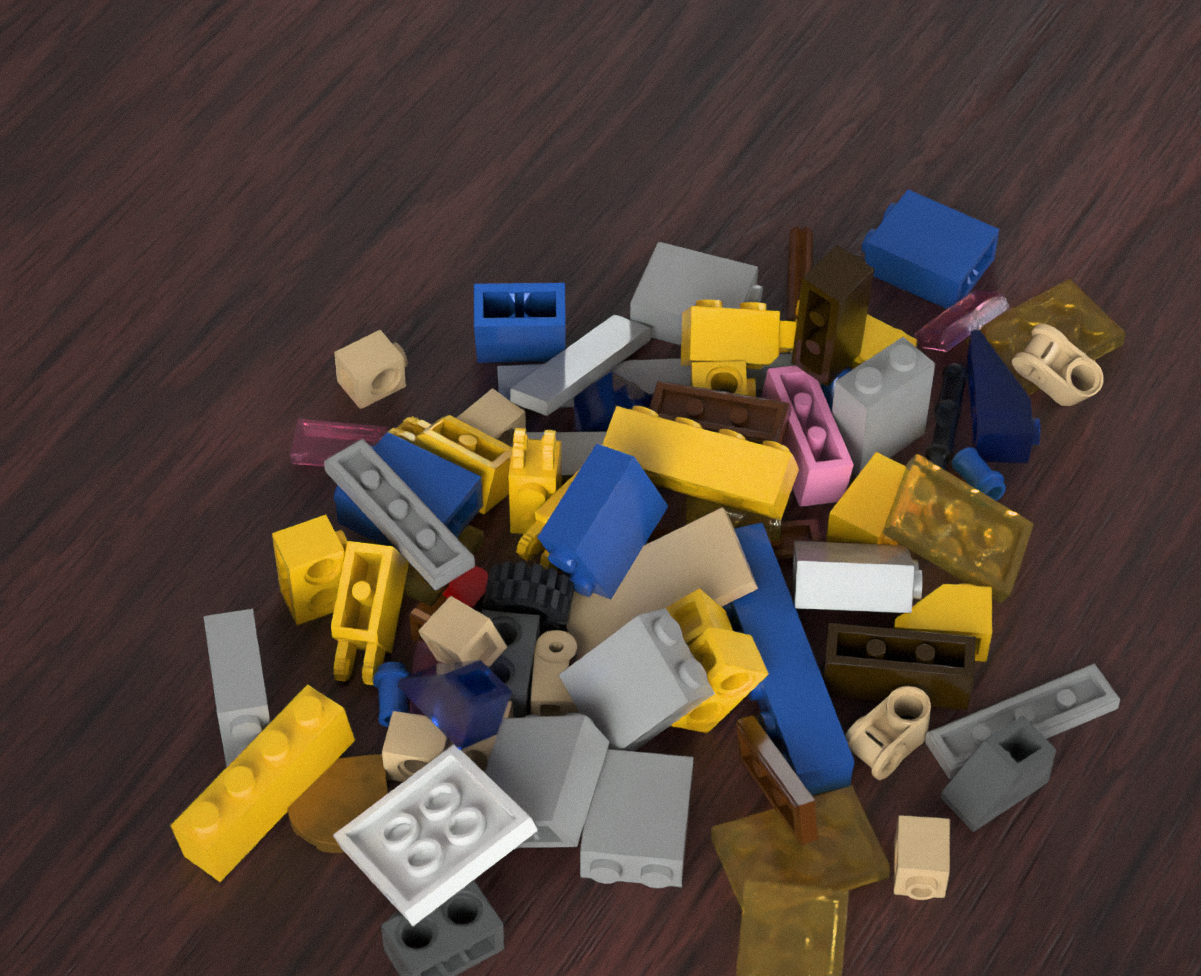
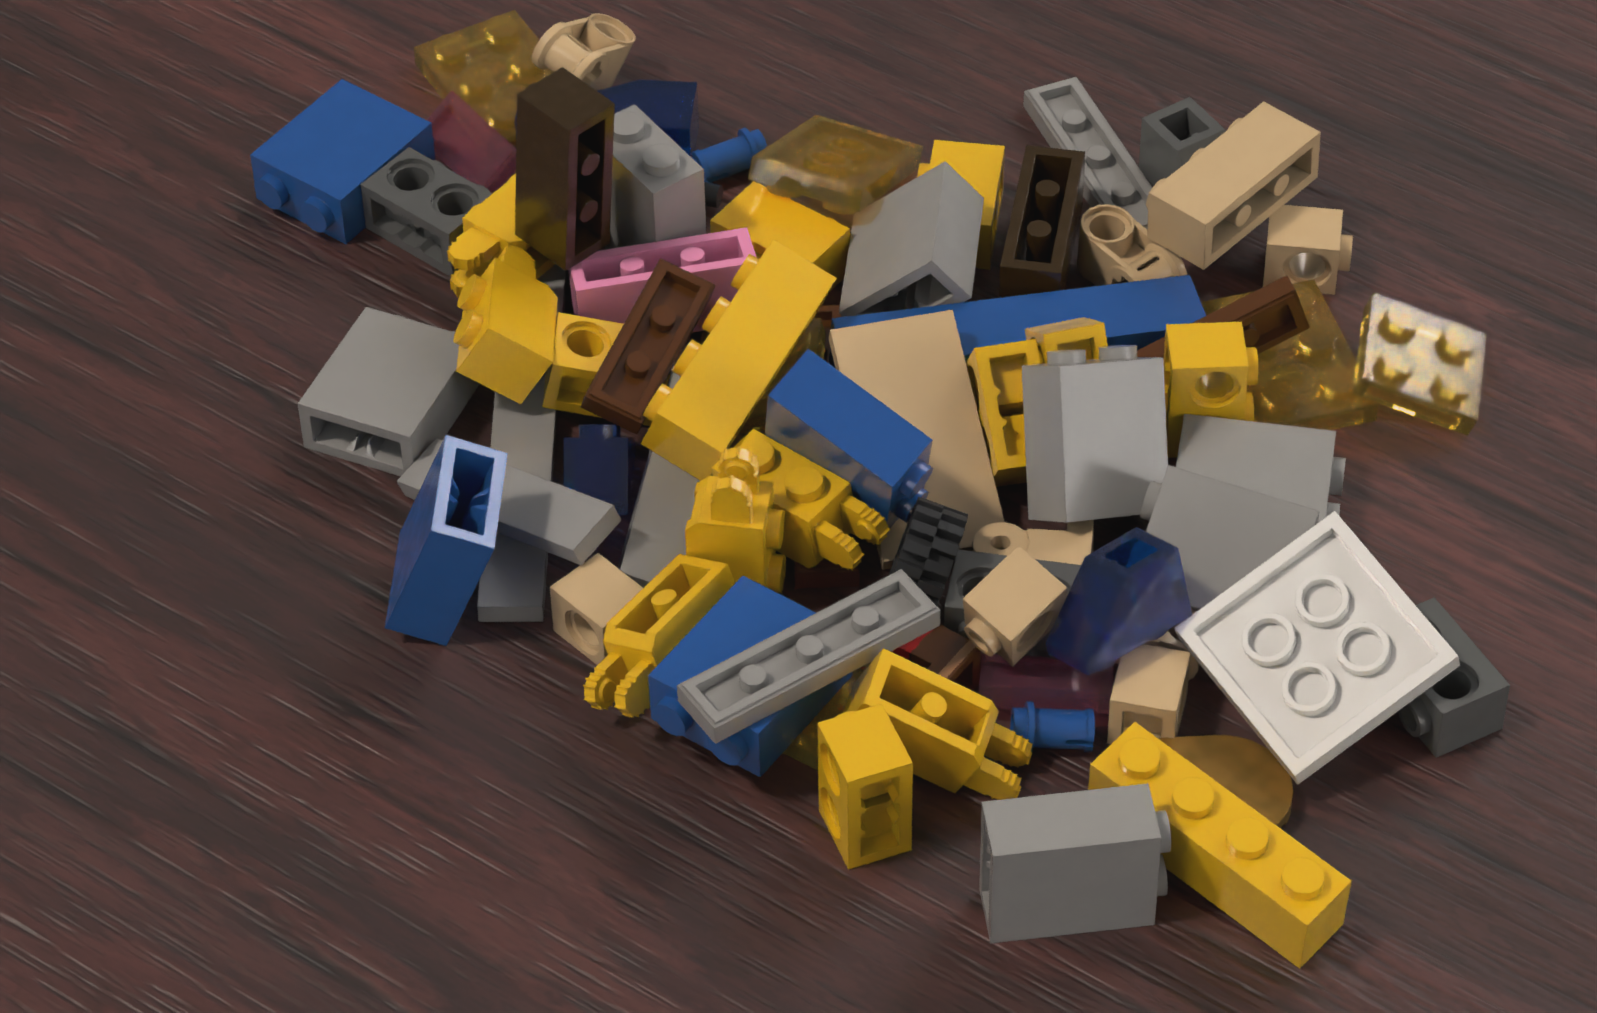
camera: 85 degrees left, 5 degrees down
(319, 440) = (594, 793): clear pink tile -> none
(371, 368) = (467, 743): tan brick -> none
(721, 769) = (1207, 375): none -> yellow brick
(799, 265) = (354, 294): reddish brown axle -> none
(898, 291) = (419, 206): none -> dark grey brick
(945, 778) = (1233, 185): none -> tan brick

